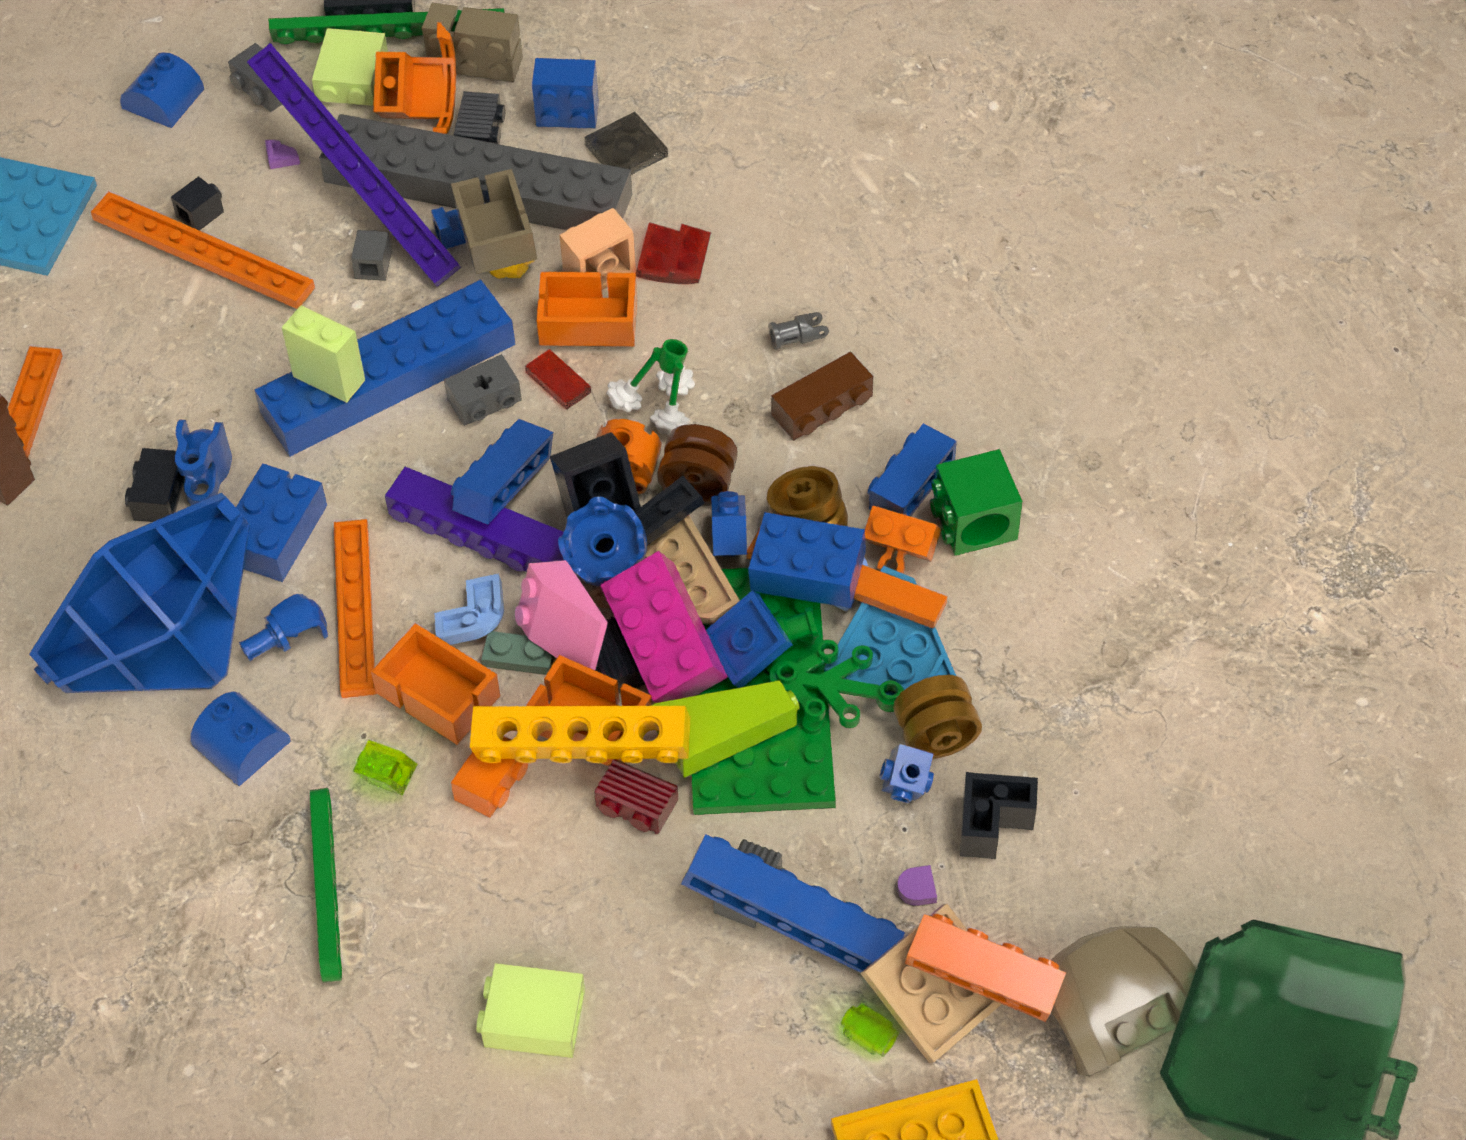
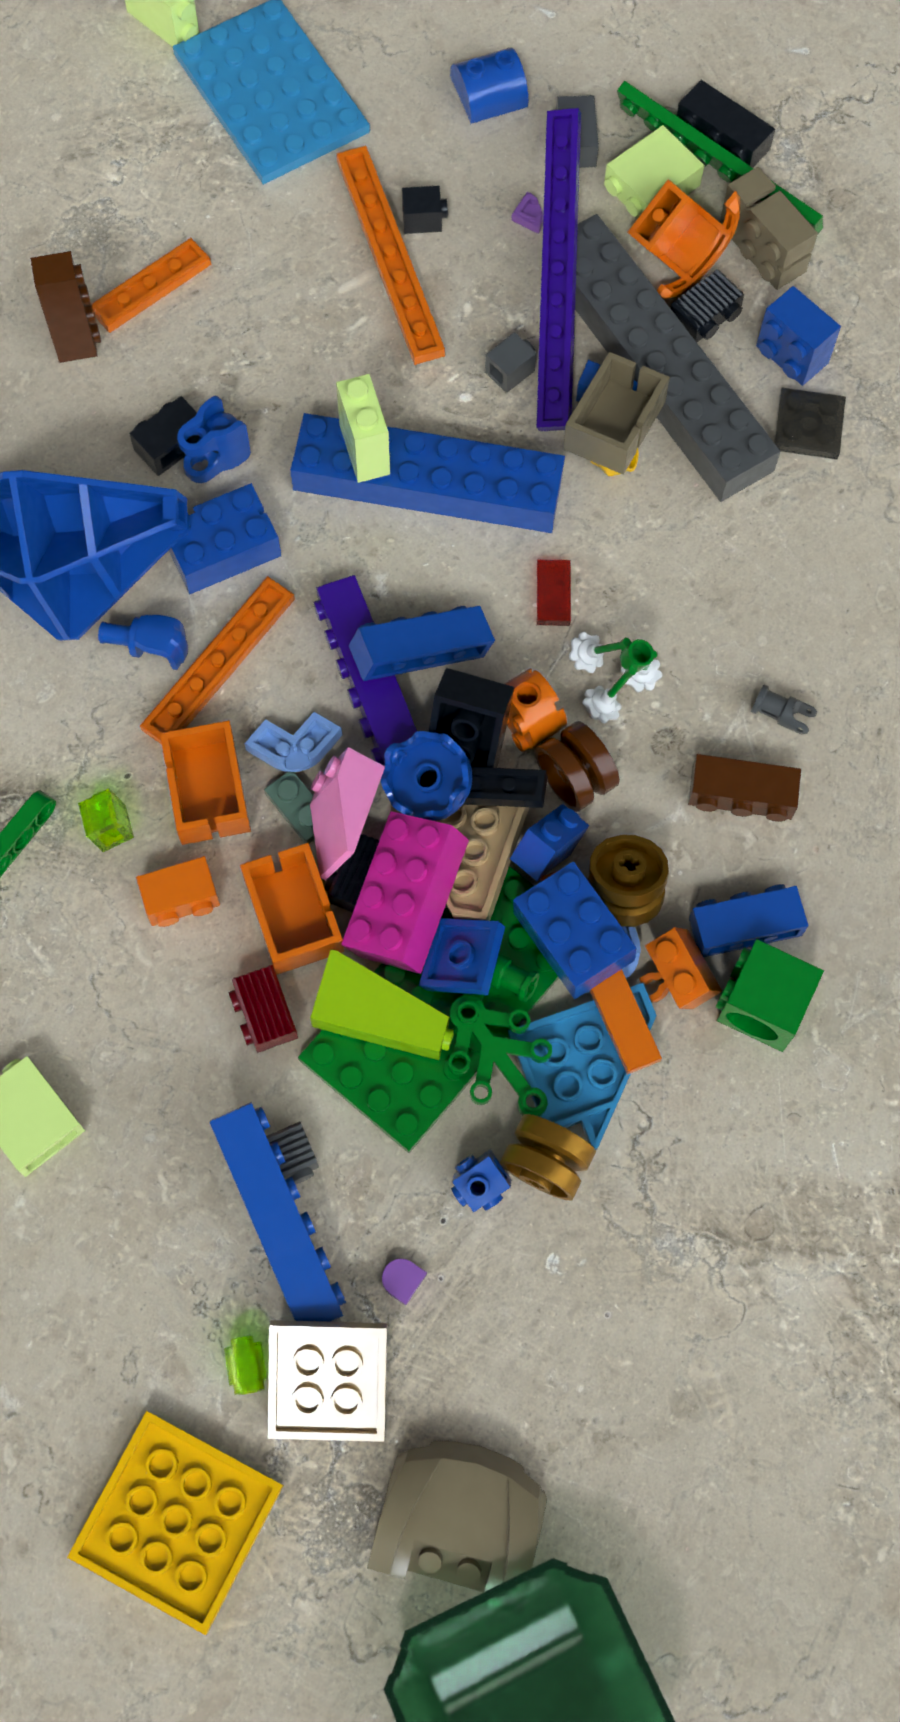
camera: 40 degrees right, 15 degrees up
(237, 736) = (37, 698): blue brick -> none
(483, 390) = (471, 543): dark grey brick -> none
(493, 722) = (194, 860): yellow brick -> none
(576, 313) = (625, 551): orange piece -> none
(599, 246) = (682, 506): light nougat brick -> none
(673, 254) = (751, 554): clear red slope -> none
(985, 967) = (359, 1413): brick -> none
(993, 803) = (517, 1266): black brick -> none

